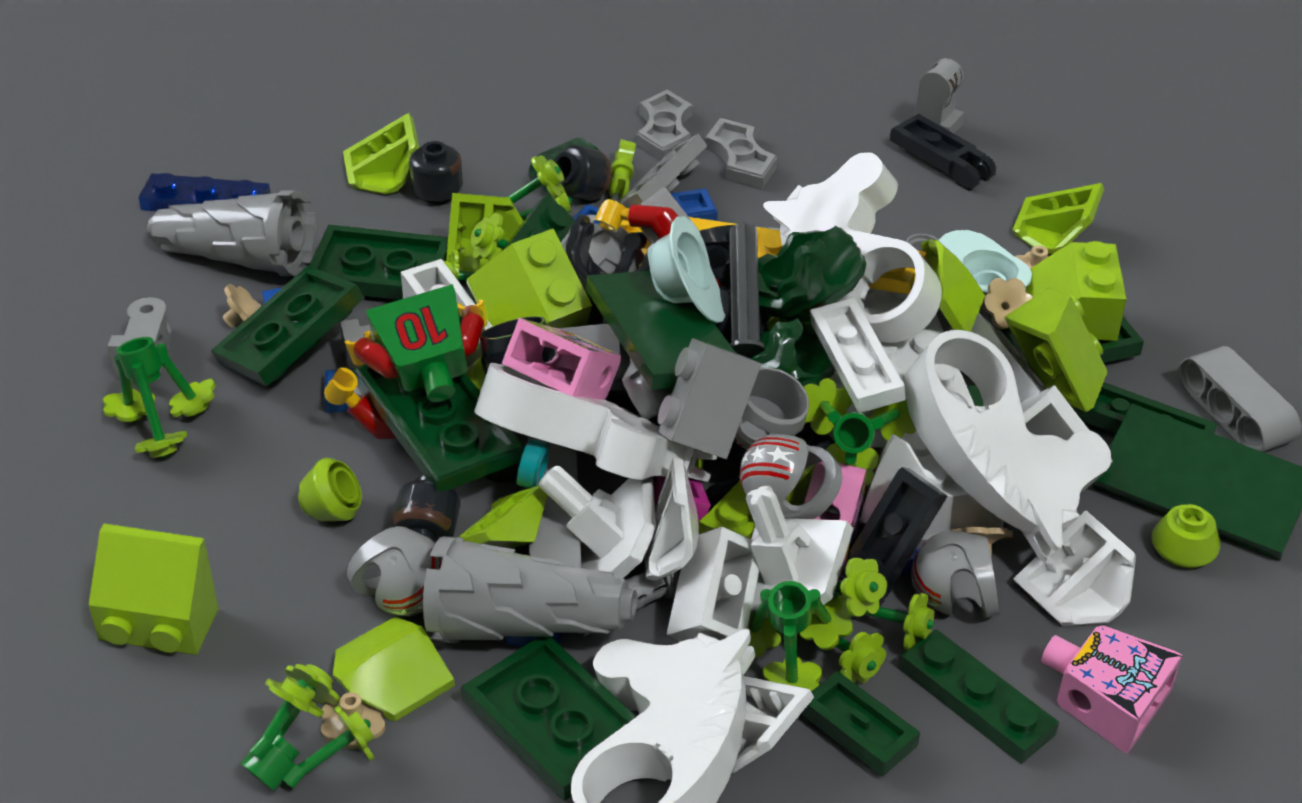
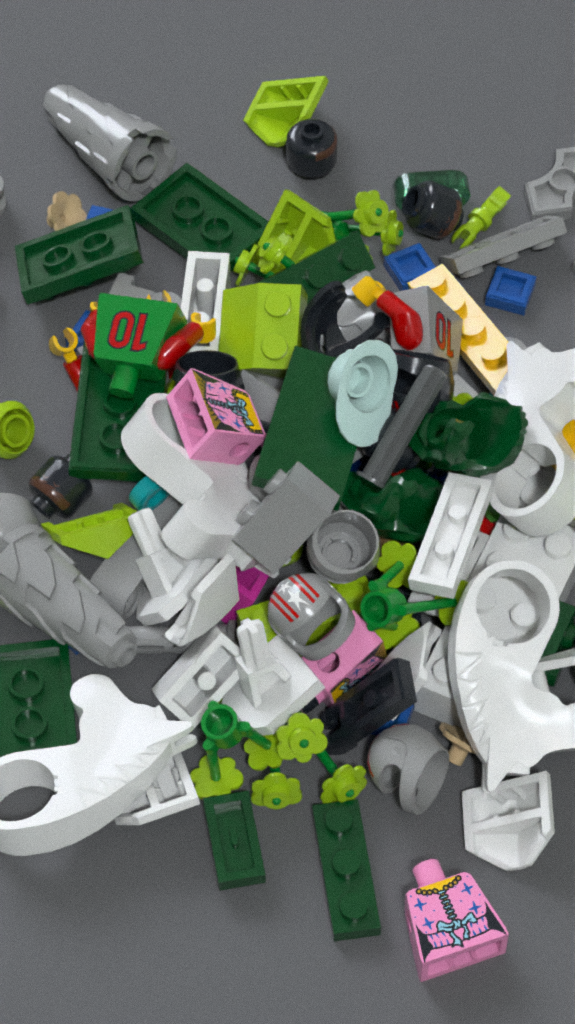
camera: 35 degrees right, 15 degrees up
(170, 189) = (119, 79): clear blue plate -> none

